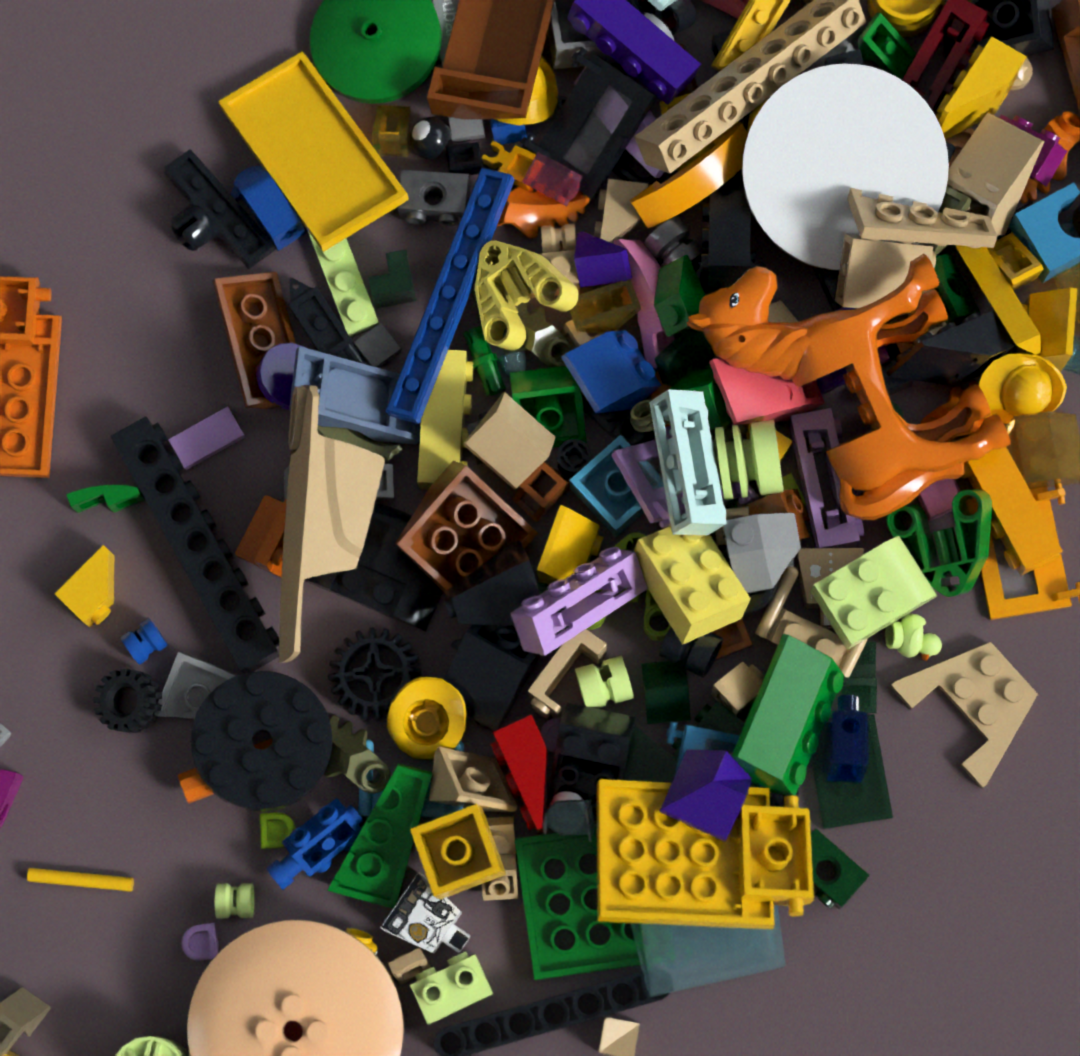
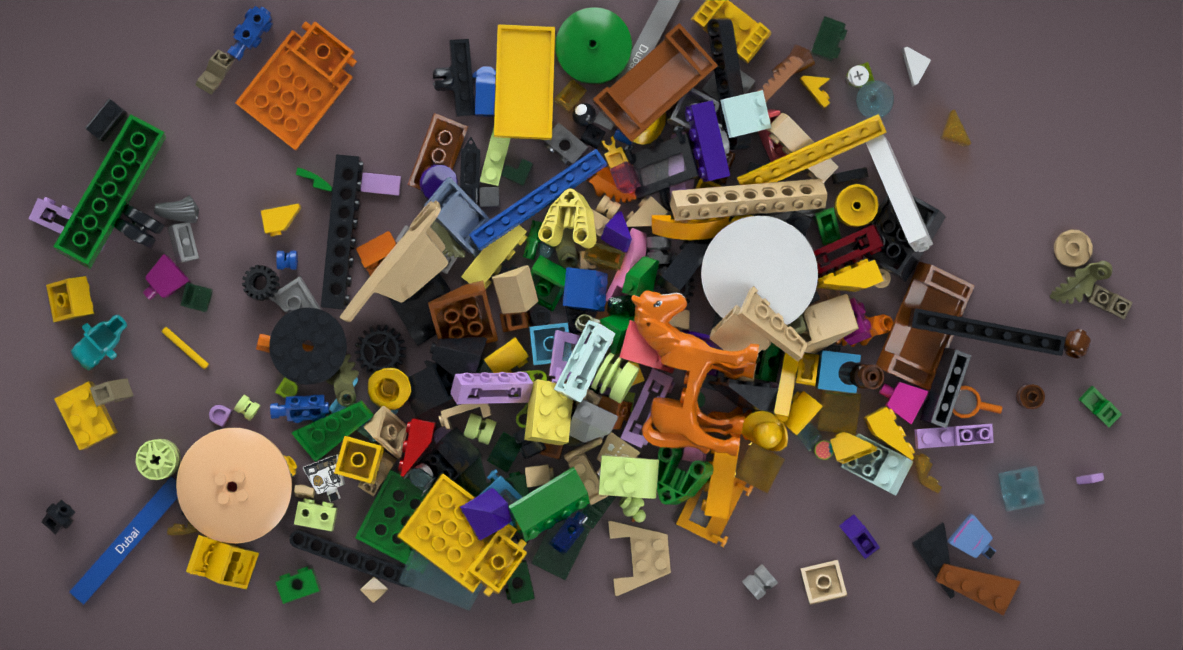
camera: 30 degrees right, 10 degrees up
(45, 790) = (196, 297): none -> clear green piece

